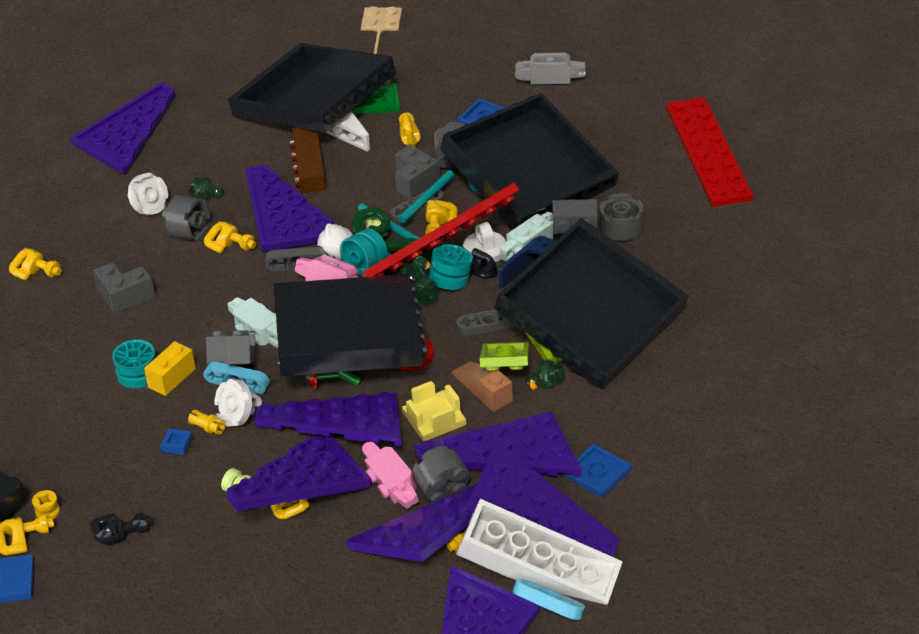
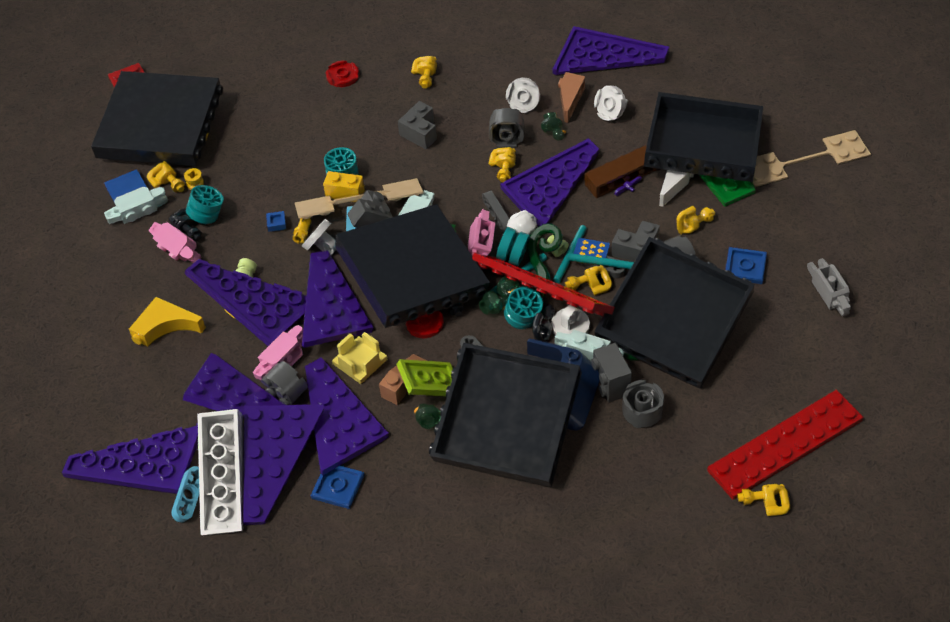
camera: 70 degrees right, 10 degrees up
(48, 571) = (136, 204): none -> light aqua hinge
(107, 494) = (204, 204): none -> teal wheel
(145, 538) = (175, 241): none -> bright pink hinge
(169, 165) = (571, 90): none -> nougat slope
(188, 396) = (324, 205): none -> tan hinge
(212, 137) = (610, 103): none -> white tile
(262, 575) = (163, 318): none -> yellow arch
(327, 162) = (627, 186): none -> dark purple piece
(398, 204) = (591, 248): none -> blue sticker
(766, 172) = (768, 495): none -> yellow piece

